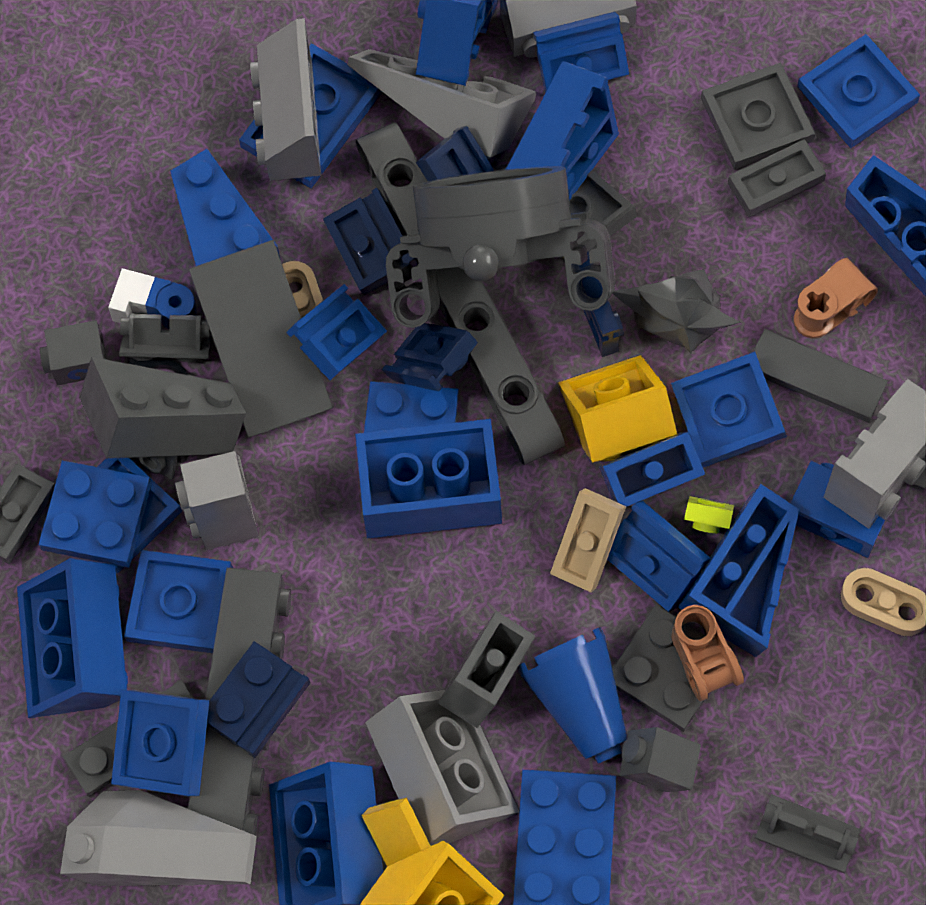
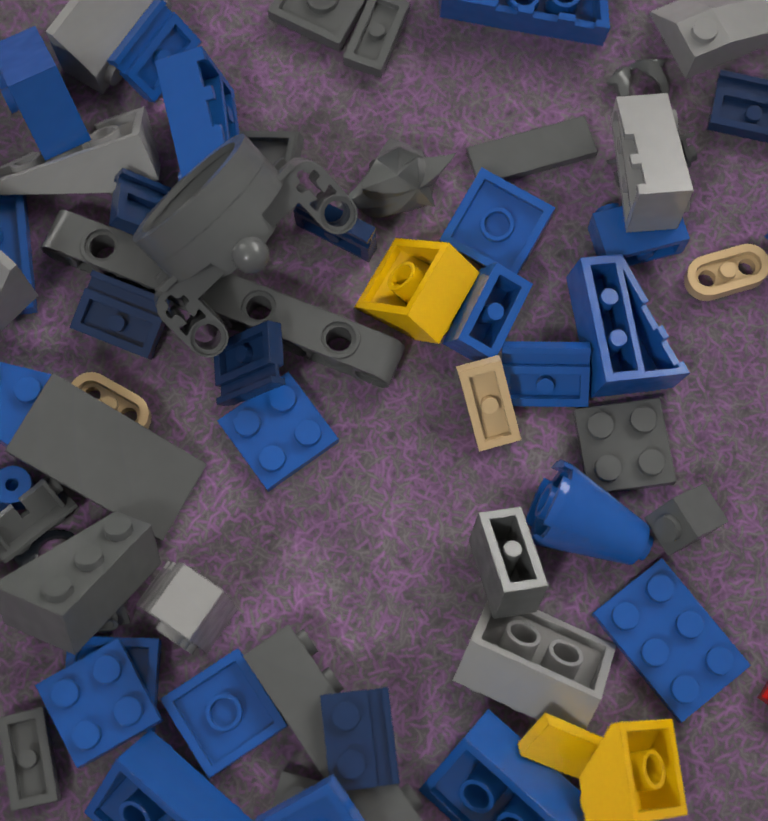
camera: 45 degrees left, 5 degrees up
(337, 332) = (162, 404): blue plate -> none
(428, 478) = (332, 455): blue slope -> none
(706, 661) = (652, 415): nougat piece -> none
(708, 514) = (552, 312): neon yellow plate -> none
(836, 295) = (495, 86): nougat piece -> none

